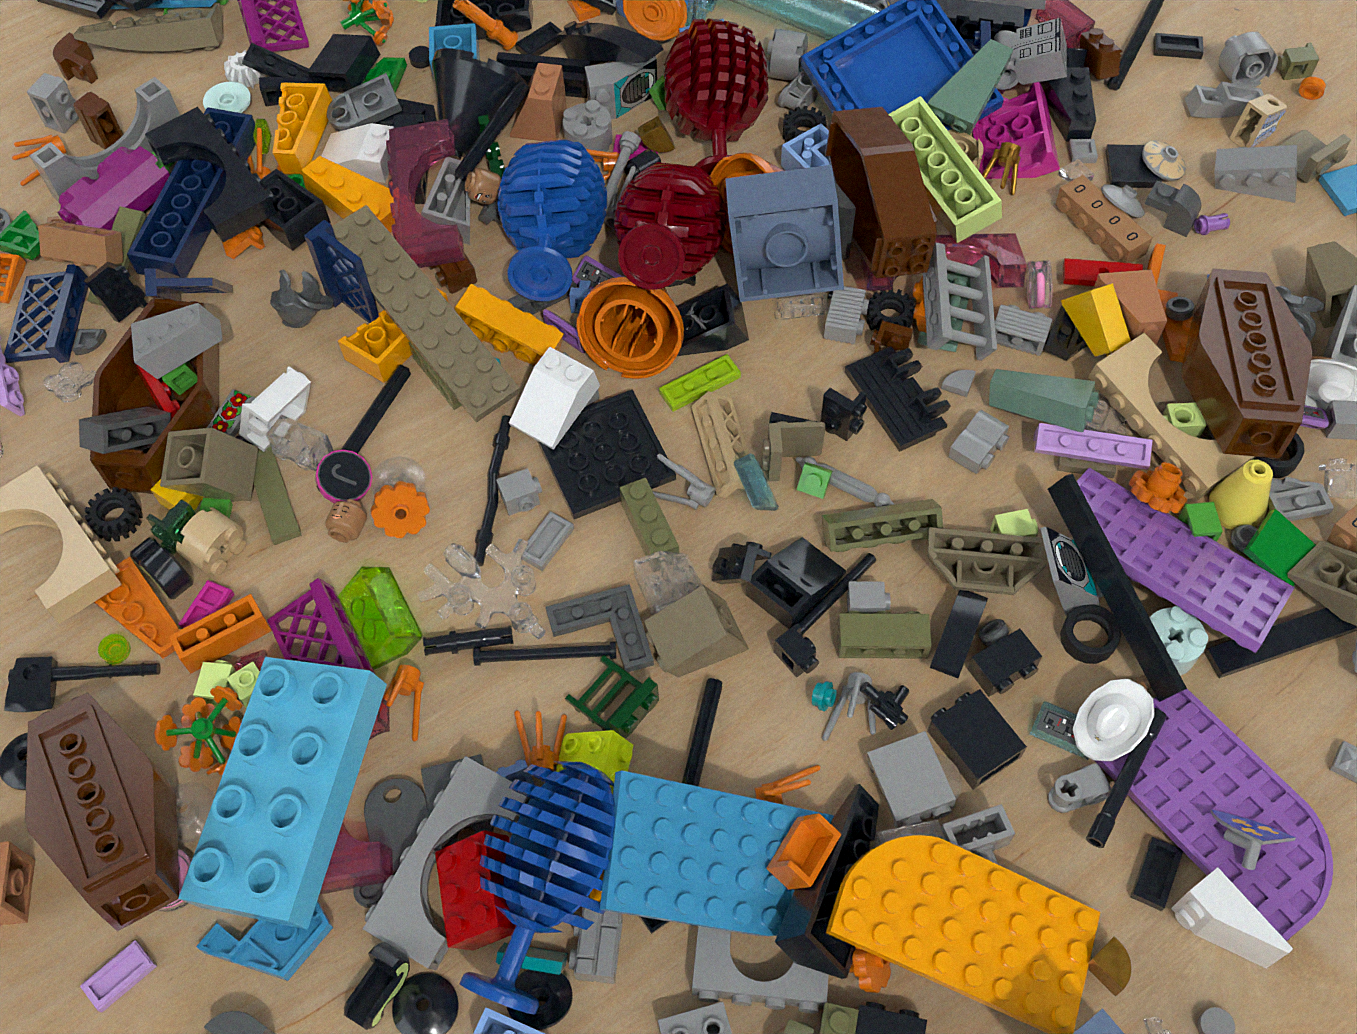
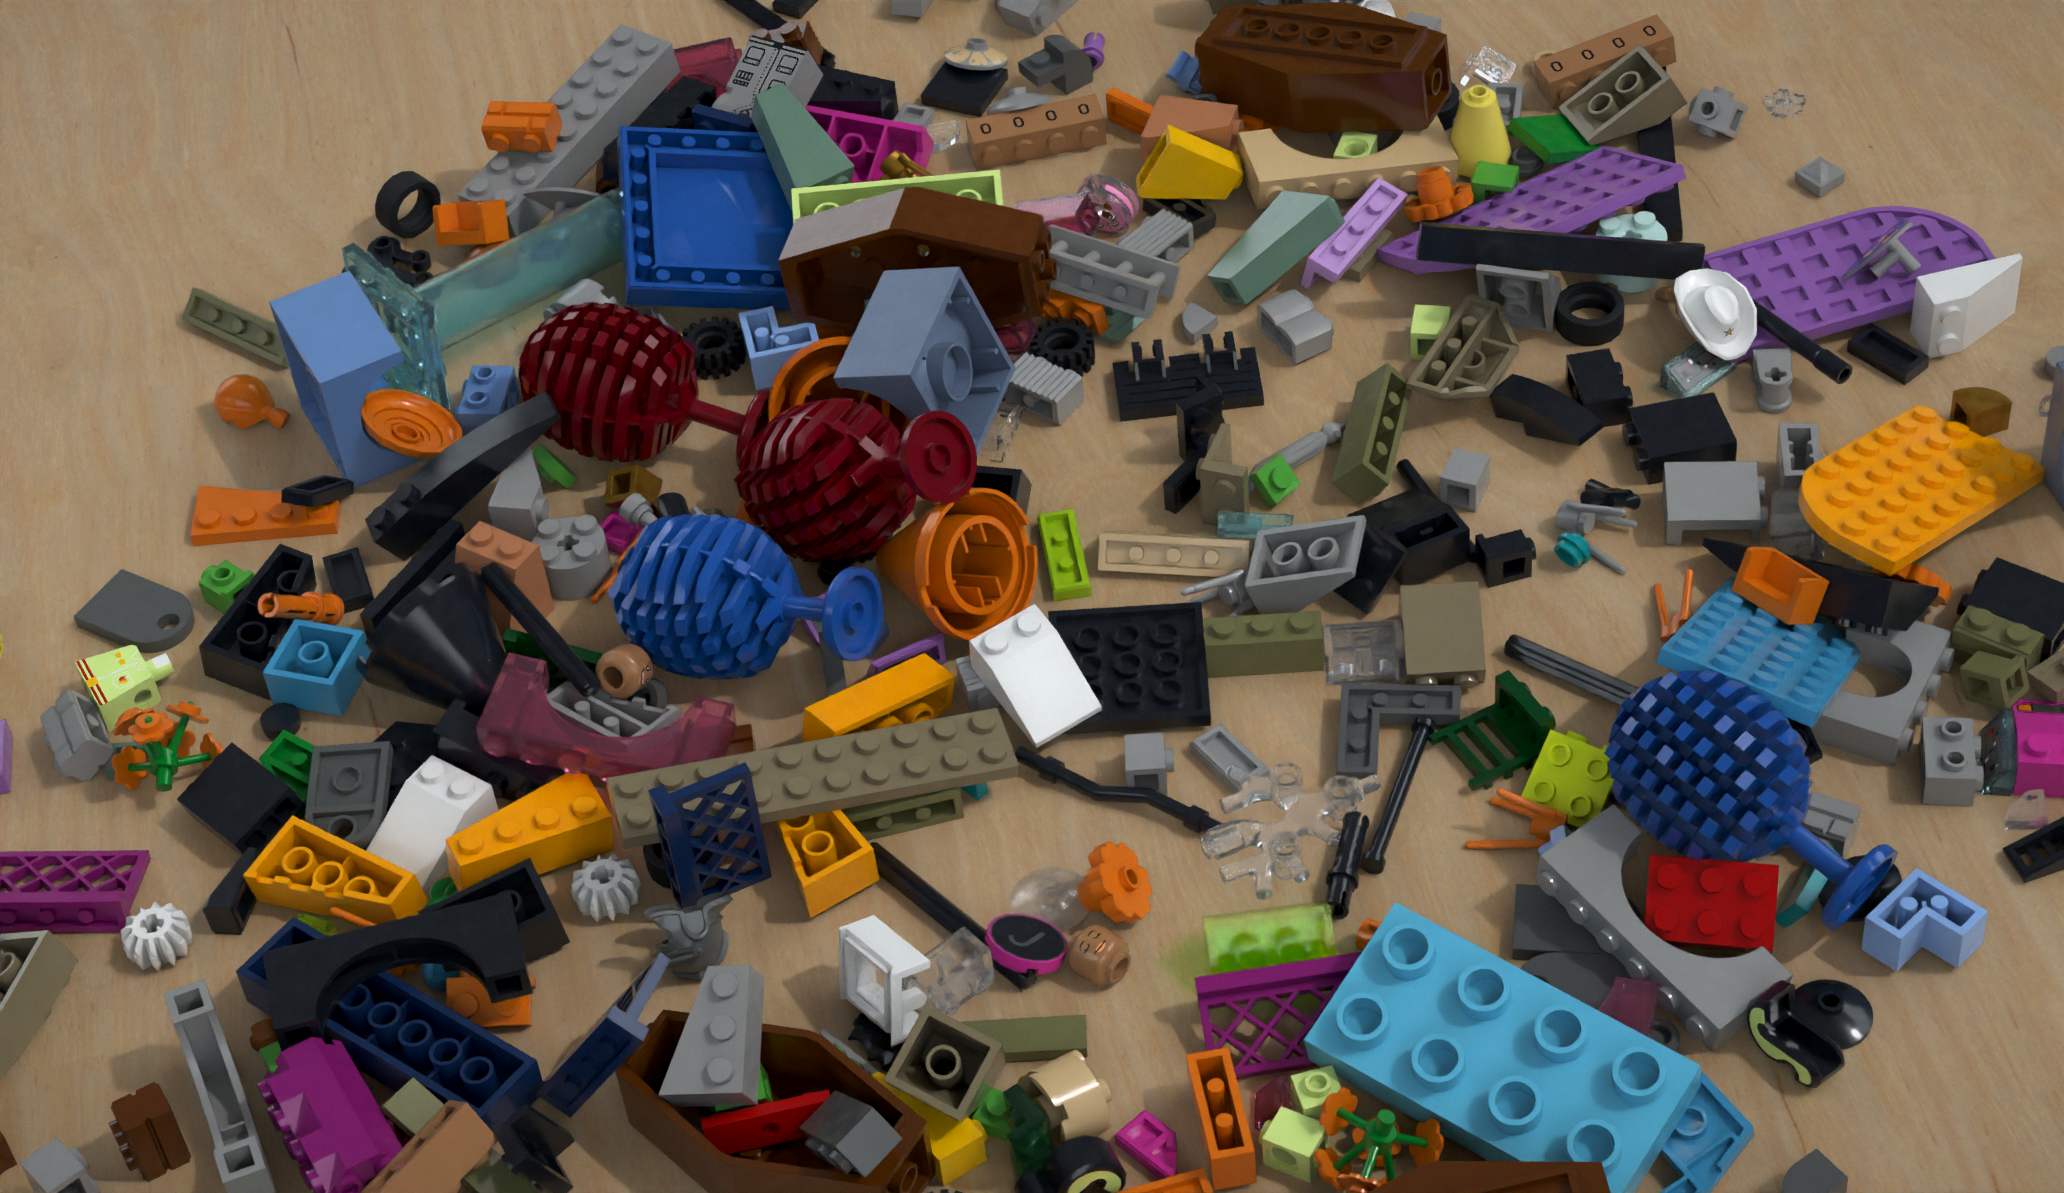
camera: 65 degrees left, 15 degrees down
(228, 97) = (210, 959): light aqua dish -> none
(273, 64) = (187, 885): black tile -> none
(719, 517) = (1303, 563): none -> light grey slope
(884, 635) = (1516, 477): olive brick -> none
(891, 335) = (1100, 357): reddish brown bracket -> none
(993, 632) = (1558, 380): dark grey tile -> none
(1086, 271) = (1114, 153): red tile -> none

